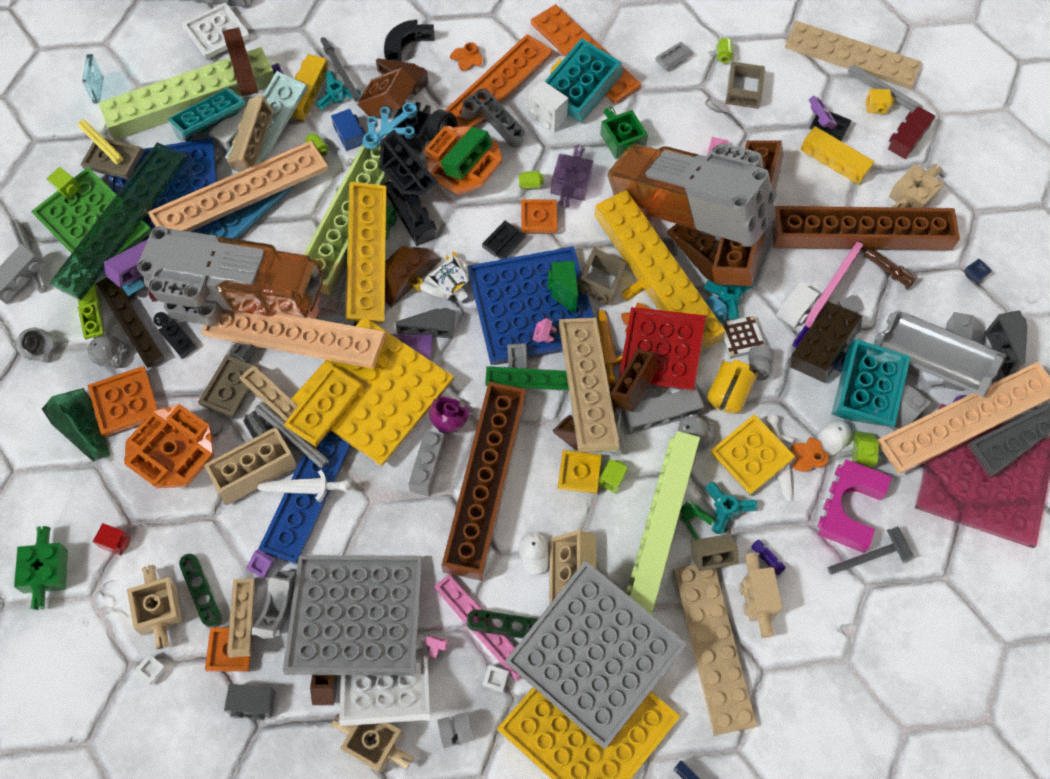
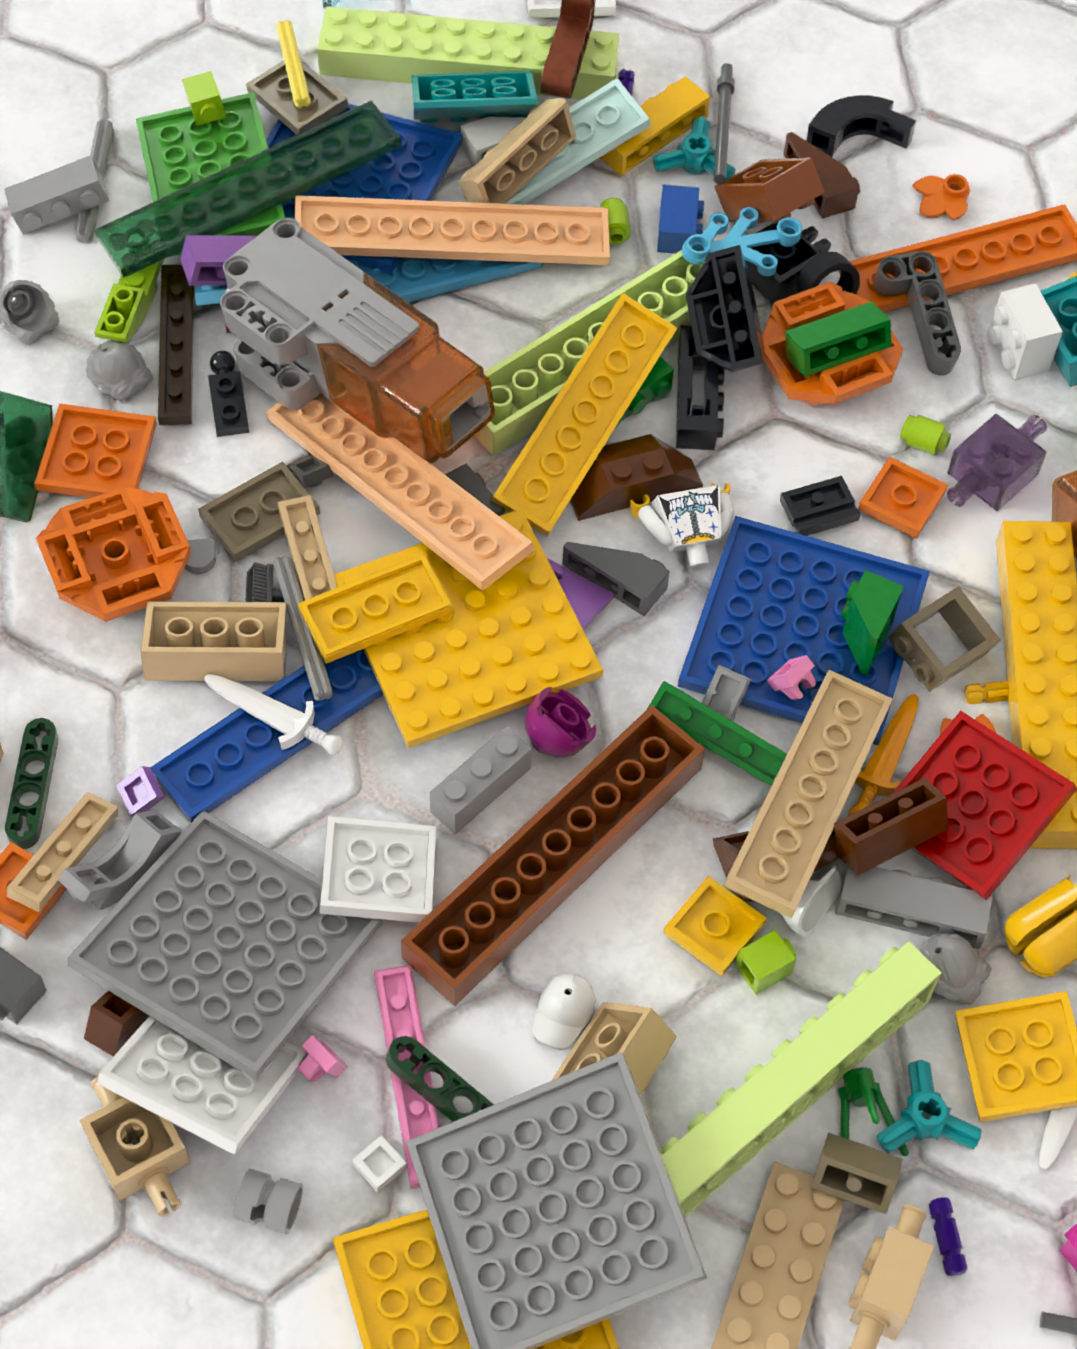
camera: 30 degrees right, 5 degrees down
(405, 536) = (378, 869): none -> white plate

